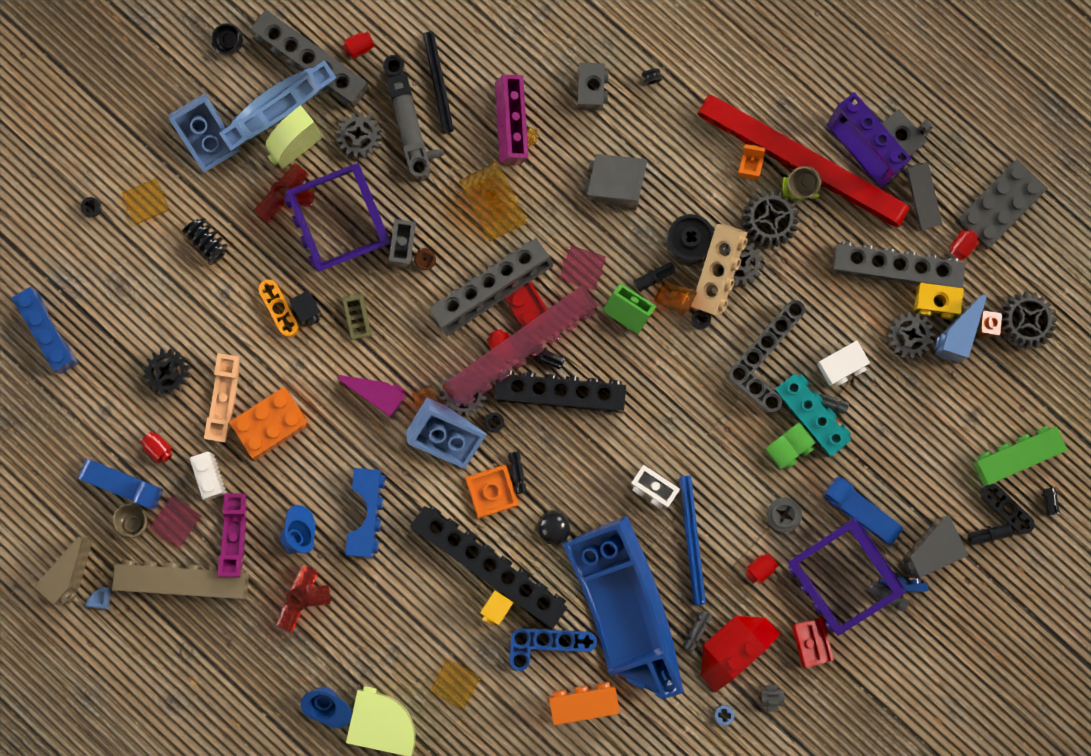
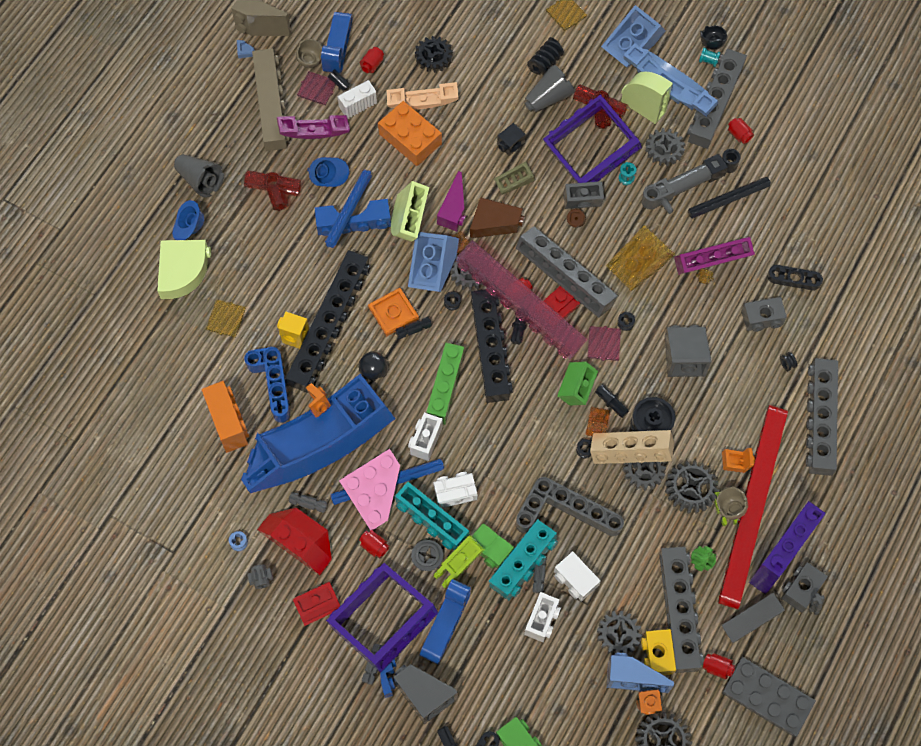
camera: 75 degrees right, 15 degrees down
(175, 492) = (338, 80): none -> black pin
(252, 51) = (709, 57): none -> teal bush
(254, 249) = (549, 90): none -> dark grey cone
(264, 684) = (200, 174): none -> dark grey cone
(266, 297) = (508, 114): light orange beam -> none
(357, 515) = (348, 209): none -> blue axle
(382, 448) = (409, 211): none -> yellowish green brick
(387, 192) = (624, 174): none -> teal bush
(405, 350) = (495, 219): none -> reddish brown slope
(553, 24) = (808, 285): none -> black beam
(559, 231) = (630, 317): none -> black bush
(590, 593) = (320, 402): none -> orange bracket
(595, 452) = (446, 381): none -> bright green brick
(700, 556) = (373, 488): none -> bright pink plate
(720, 469) = (455, 490): none -> white brick
(734, 56) = (828, 371): none -> dark grey brick
(745, 501) = (430, 515): none -> teal brick
(801, 481) = (459, 560): none -> lime hinge
(850, 228) = (703, 558): none -> bright green gear
(880, 410) = (541, 617): none -> white brick

